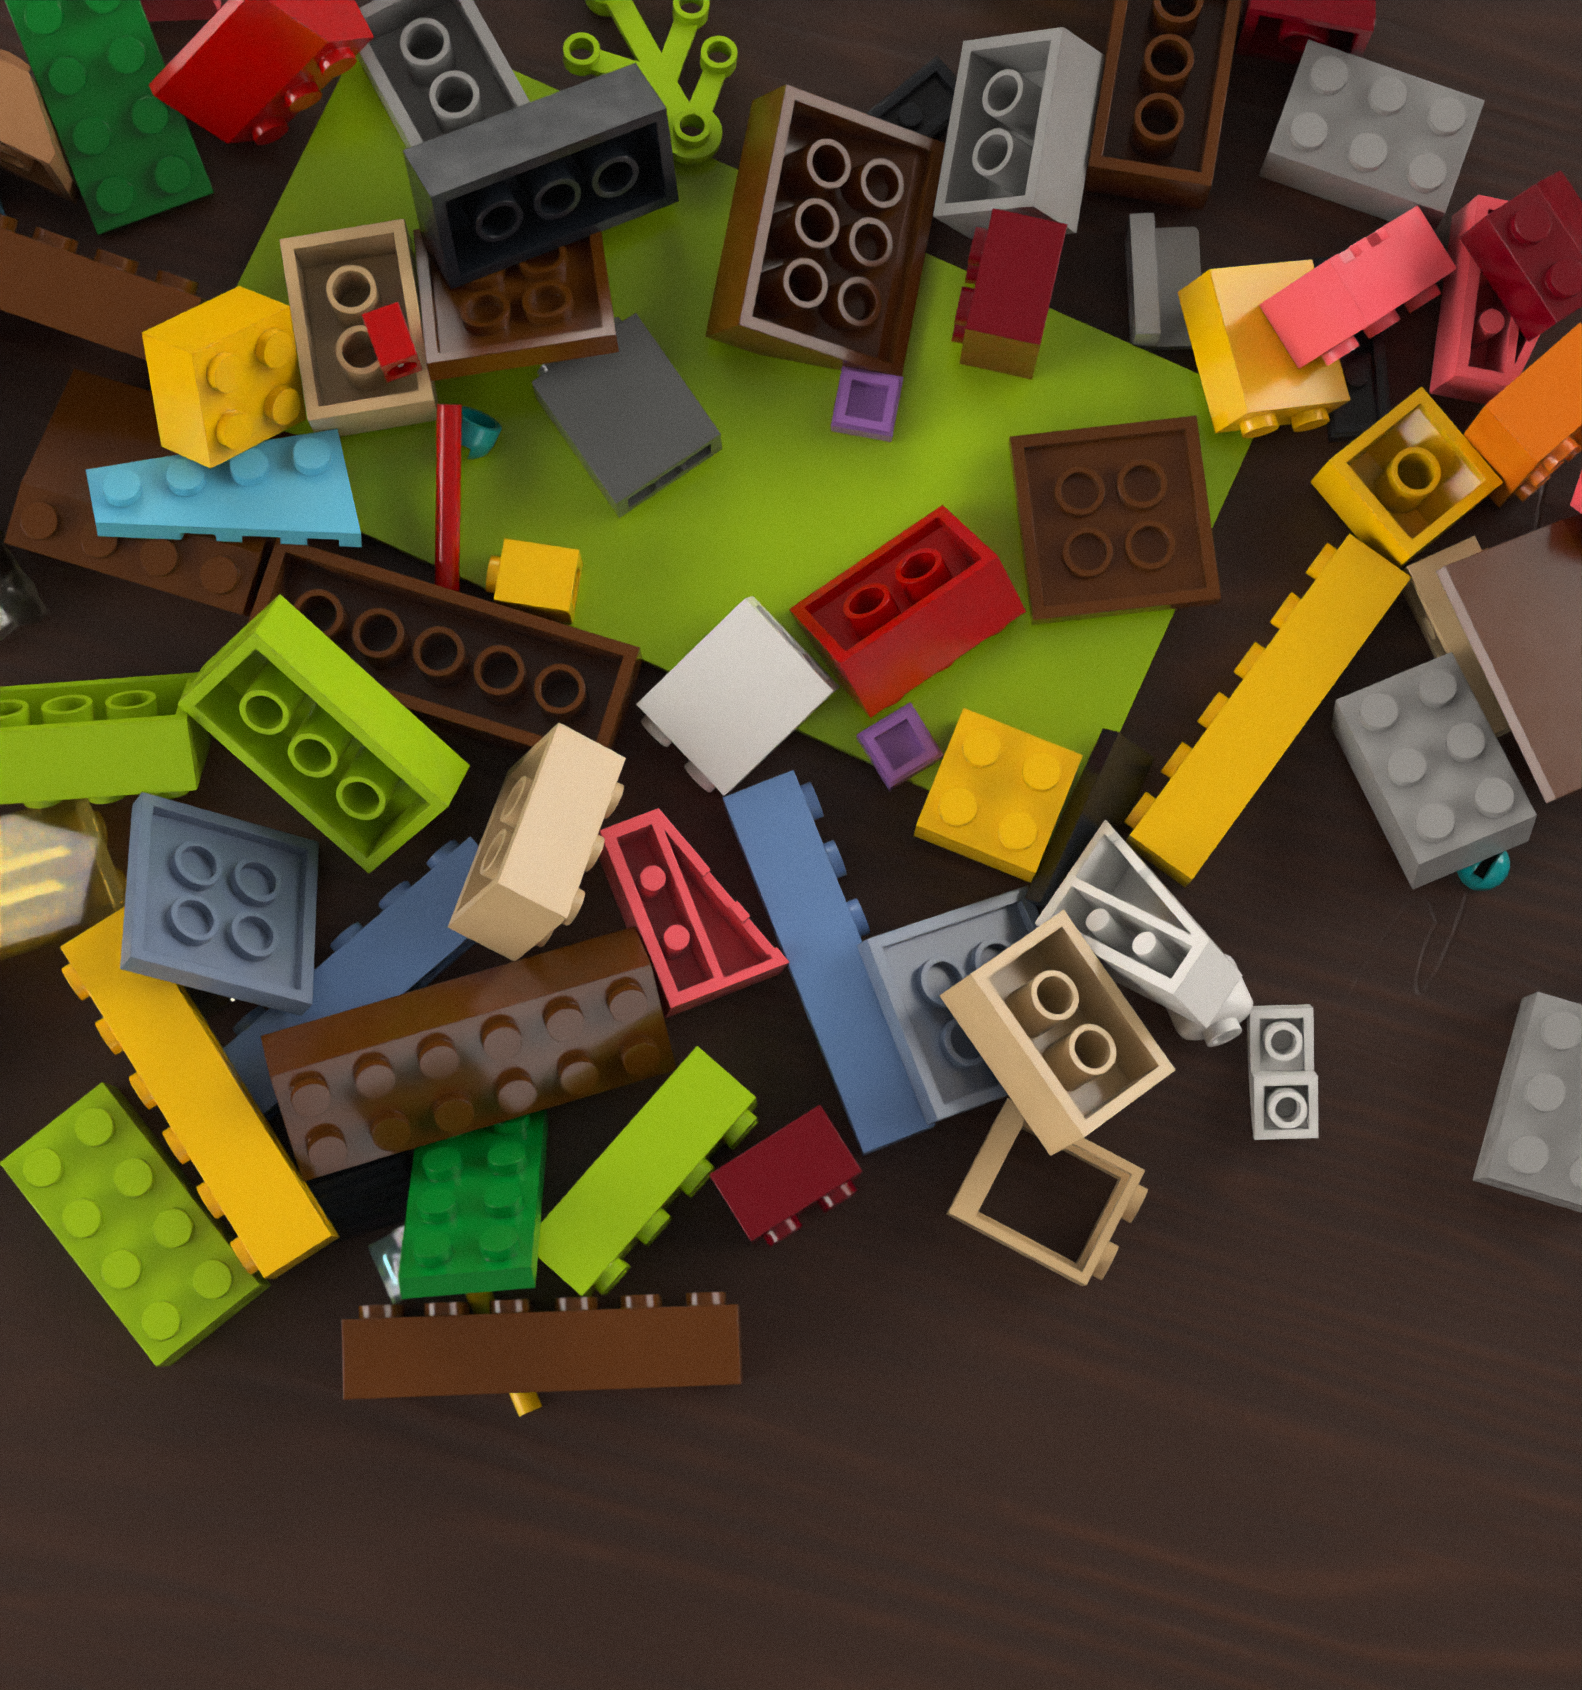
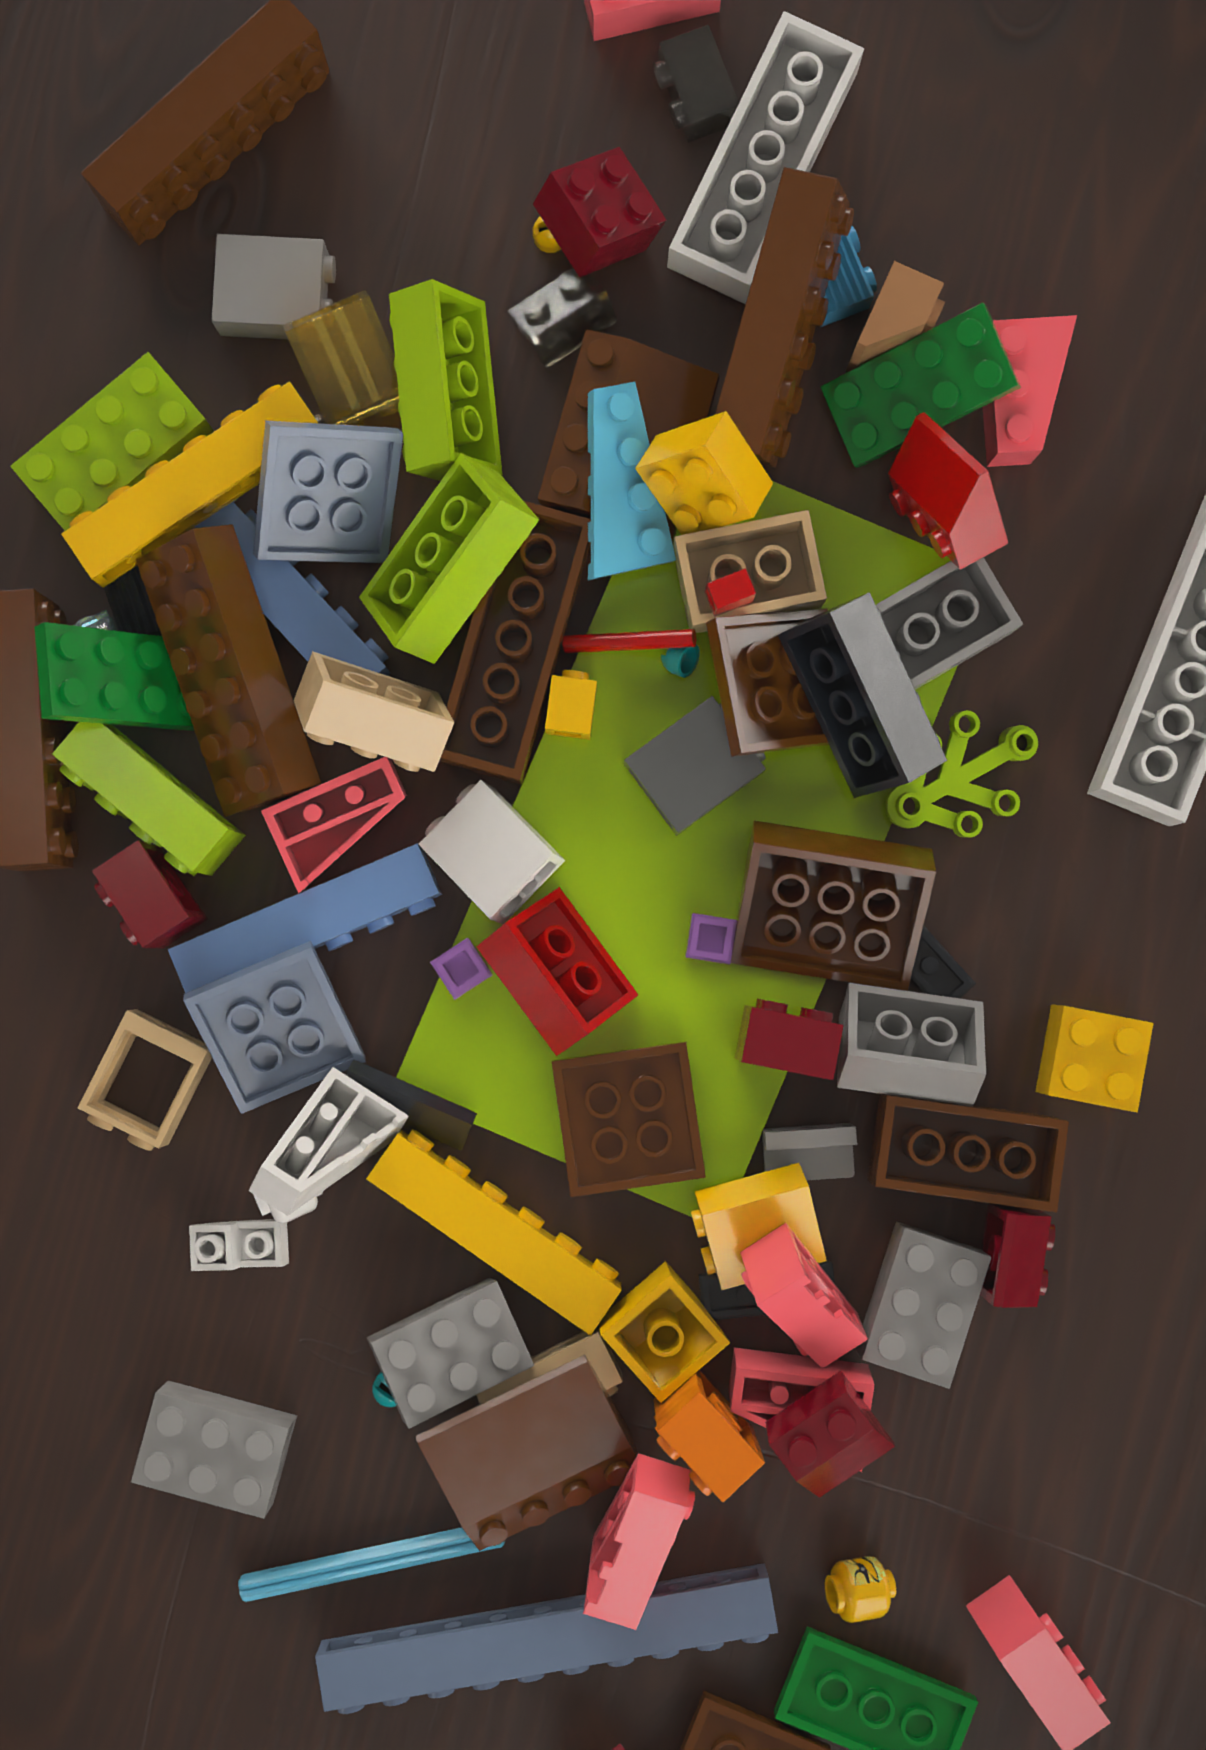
camera: 85 degrees right, 5 degrees up
(997, 795) = (422, 1039): yellow brick -> none
(1057, 1033) = (246, 1084): tan brick -> none

